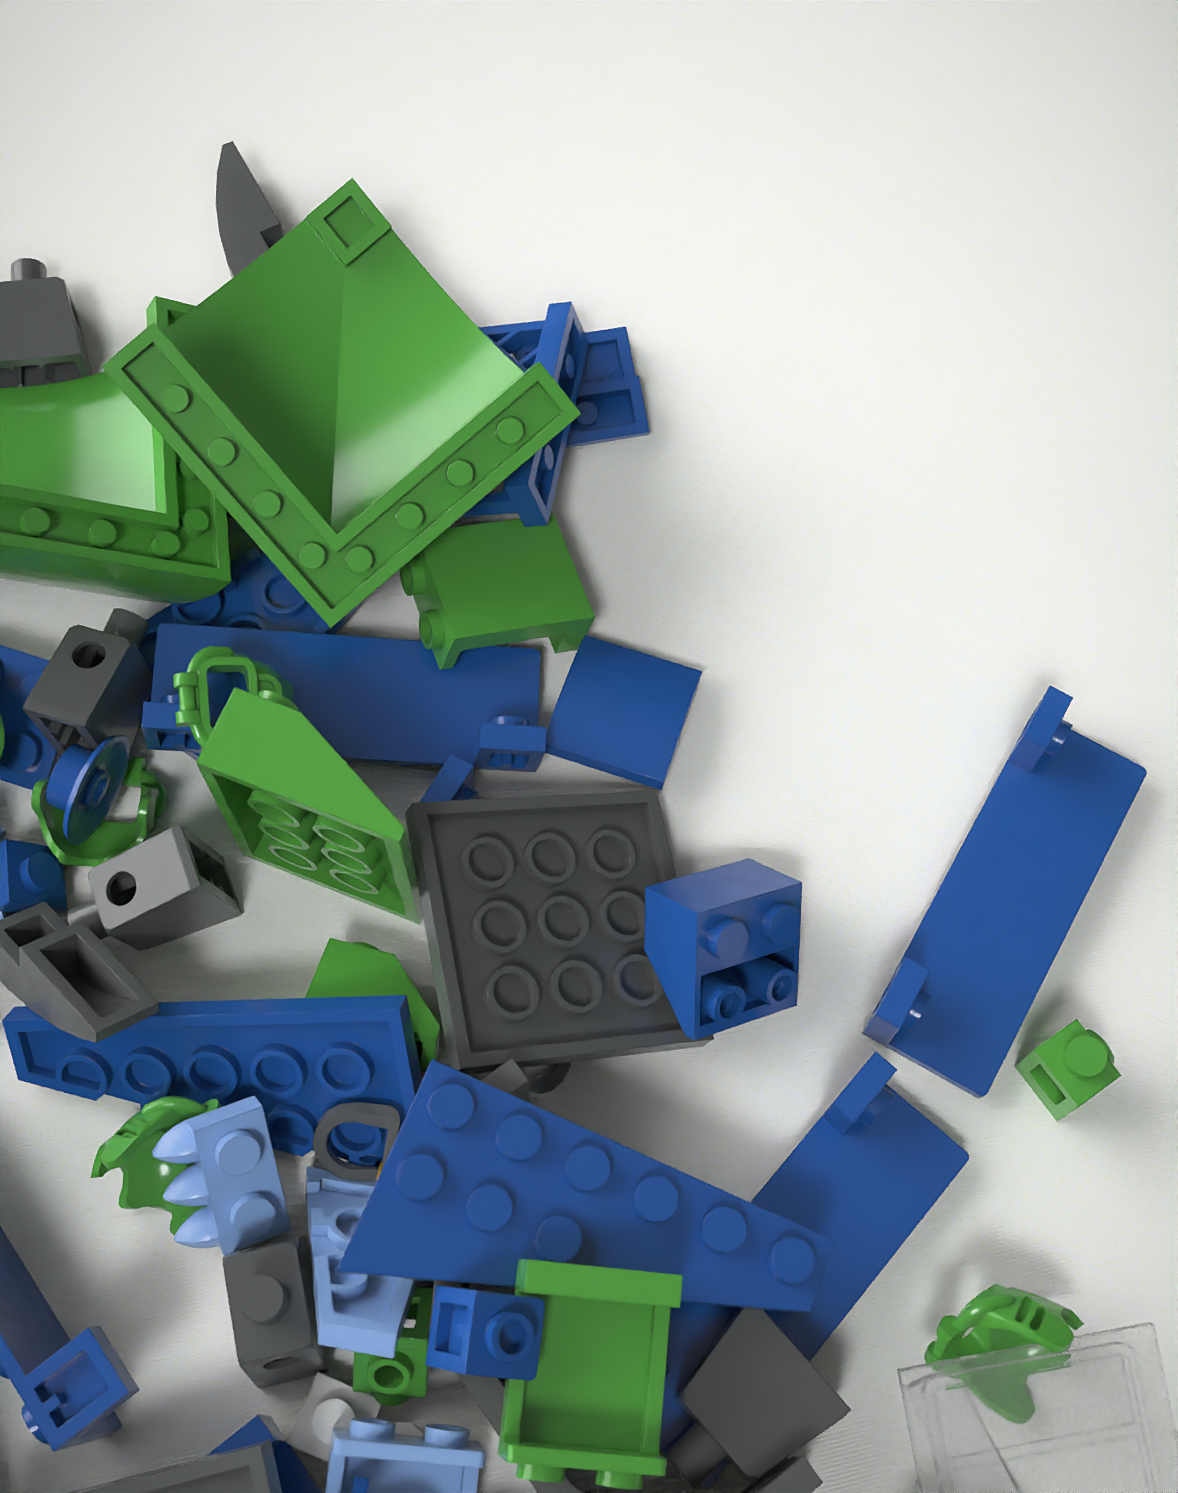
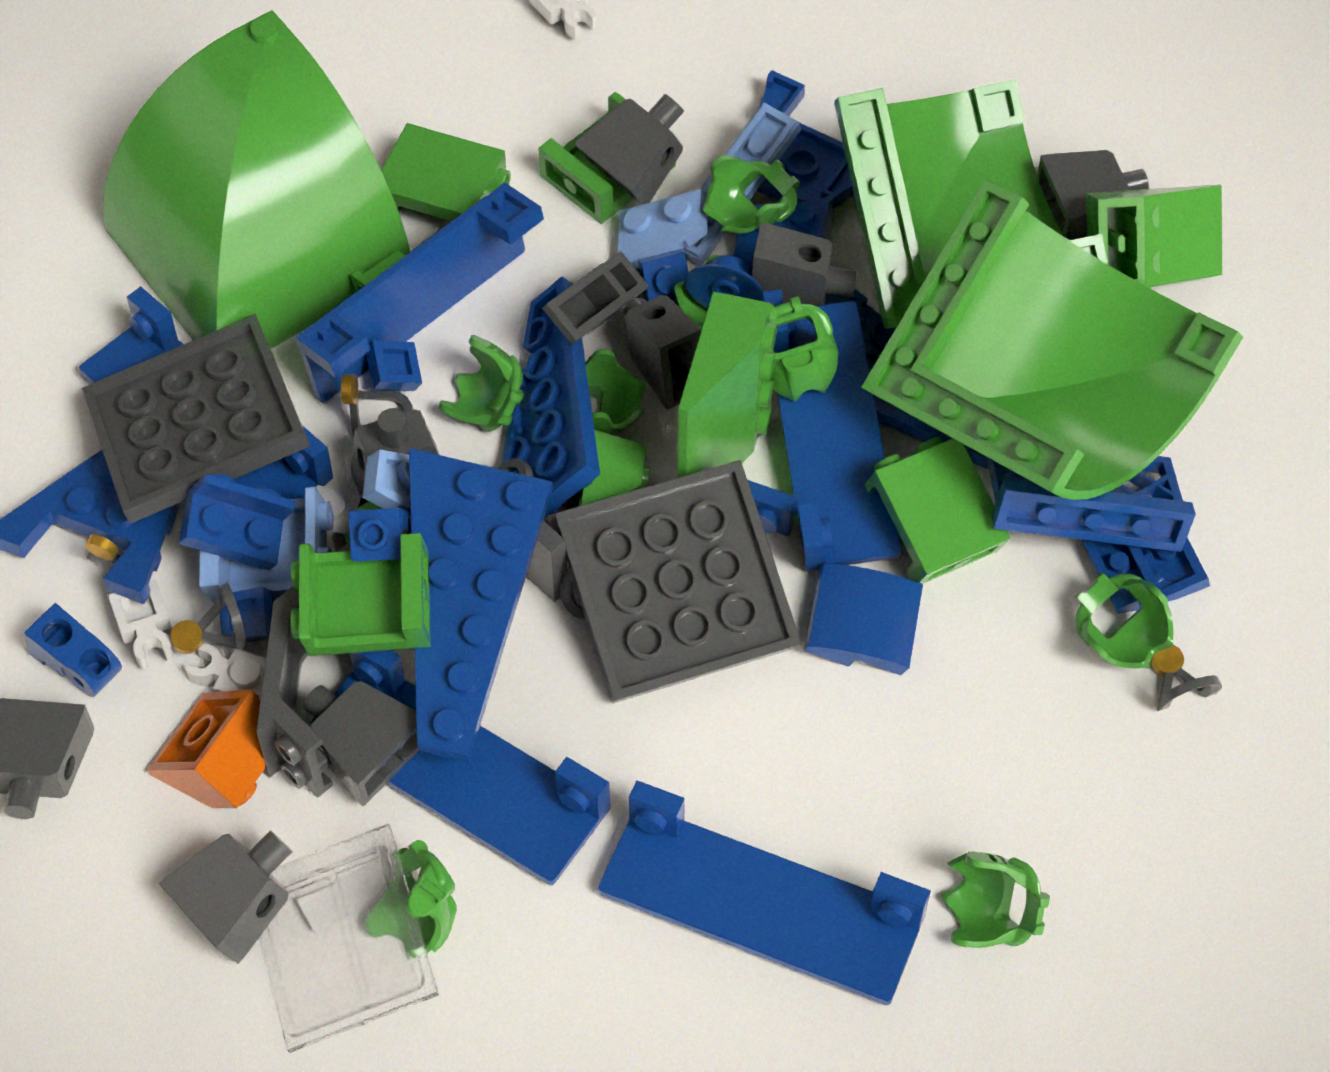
camera: 85 degrees right, 10 degrees down
(92, 1296) = (393, 365): none -> blue plate
(119, 261) = (1160, 232): none -> bright green slope
(197, 1350) = (351, 394): none -> dark grey piece
(226, 970) = (617, 390): none -> bright green helmet
(231, 1176) = (479, 417): light blue plate -> none
(243, 213) = (1237, 299): dark grey slope -> none
(689, 413) = (1138, 637): none -> bright green helmet
(720, 396) = (1169, 664): none -> dark grey piece
(725, 944) = (680, 691): blue slope -> none
(1038, 653) = (985, 897): none -> bright green helmet
(1075, 1062) = (625, 943): bright green brick -> none

